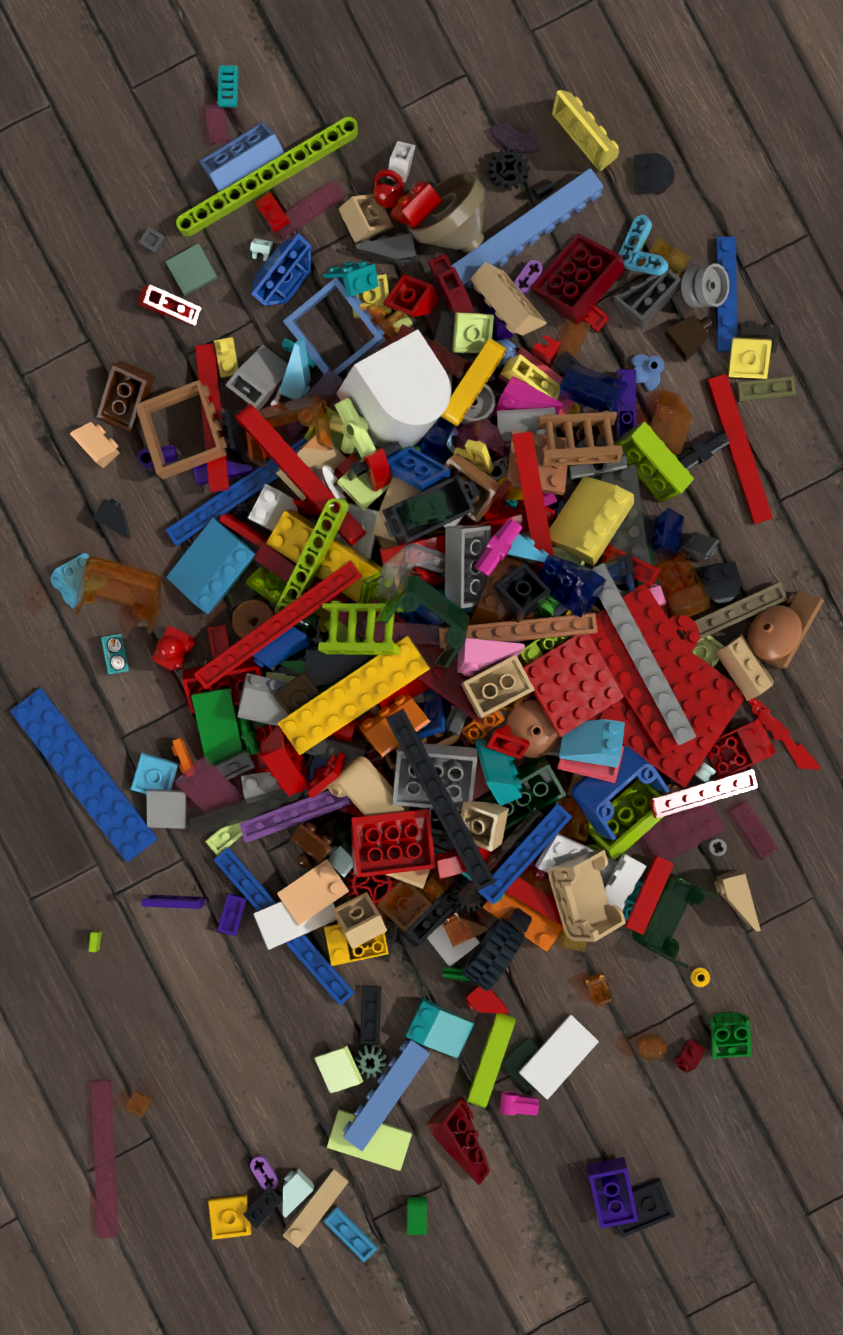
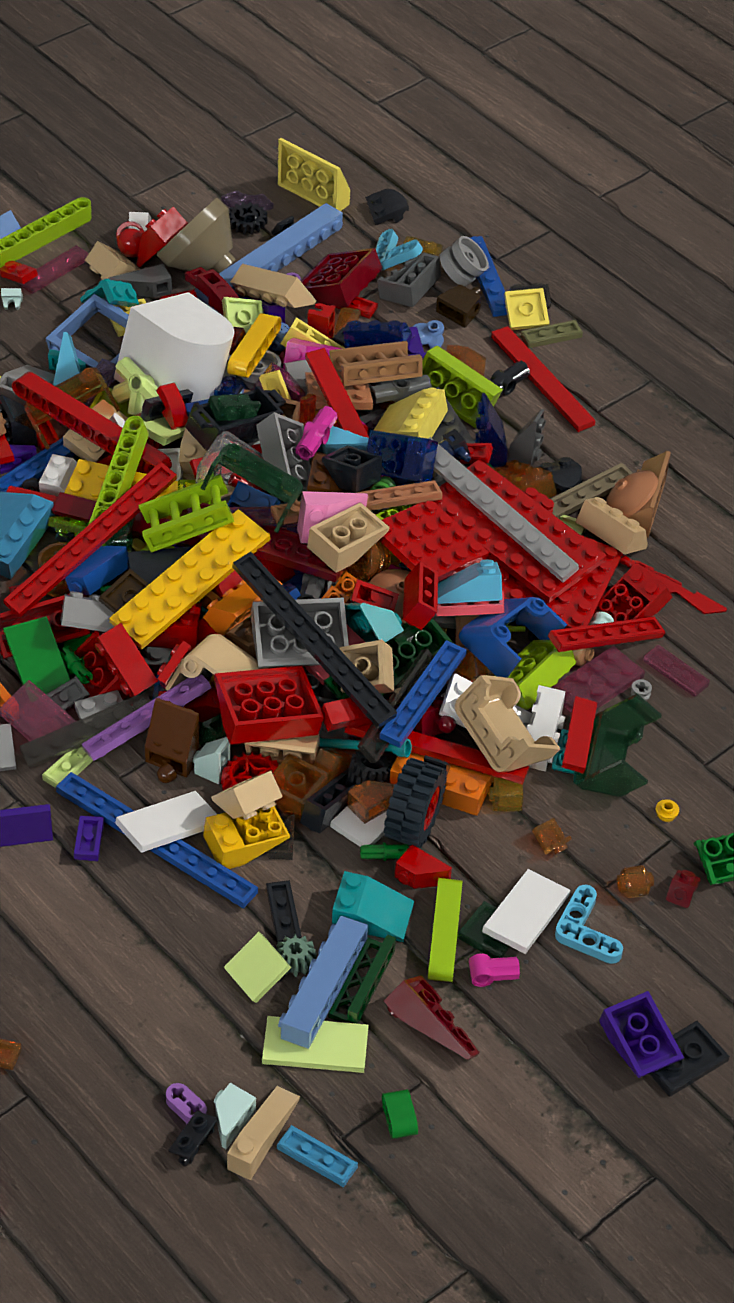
camera: 15 degrees left, 40 degrees down
(228, 1217) = (149, 1166): yellow tile -> none
(283, 272) = (41, 306): blue wedge -> none
(312, 892) = (184, 789): light nougat slope -> none
(423, 1096) = (367, 984): none -> dark green fence
(545, 760) = (420, 595): none -> red brick
(594, 1074) = (576, 926): none -> medium azure beam
(736, 891) = (683, 720): tan slope -> none

